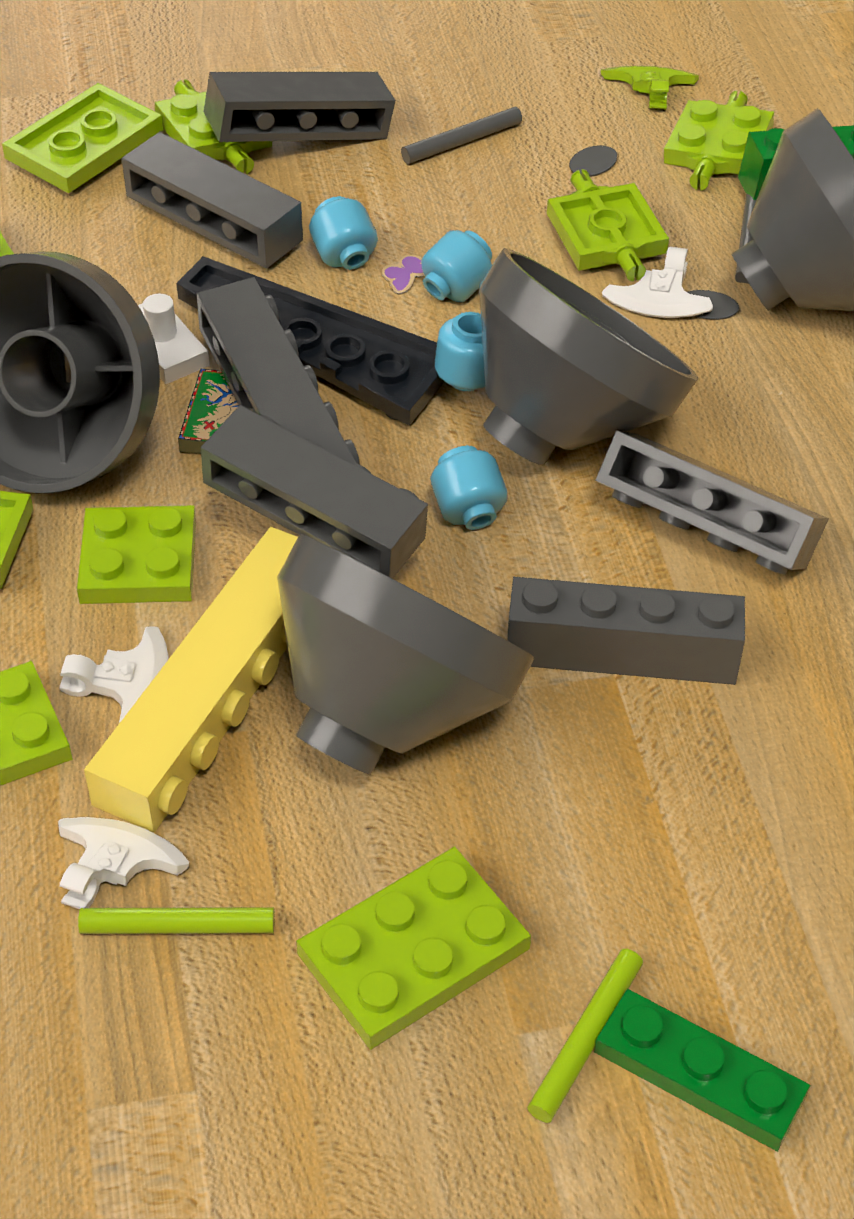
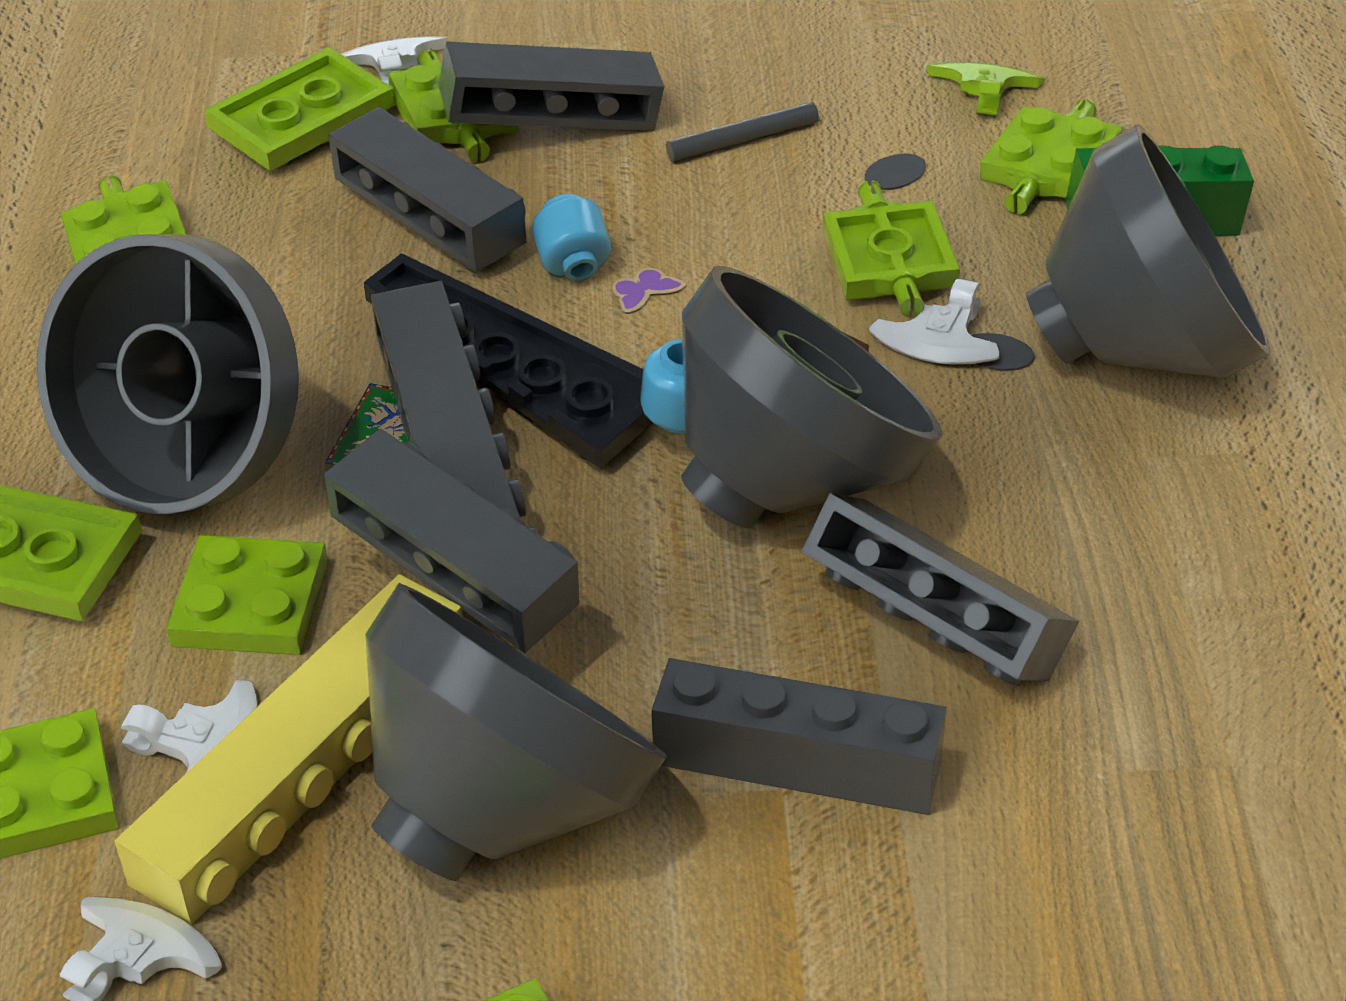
camera: 10 degrees right, 5 degrees down
(152, 86) = (394, 54): none -> white piece
(176, 345) = (336, 345): white tile -> none
(456, 265) = (683, 275): medium azure head -> none
(468, 487) = (650, 546): medium azure head -> none

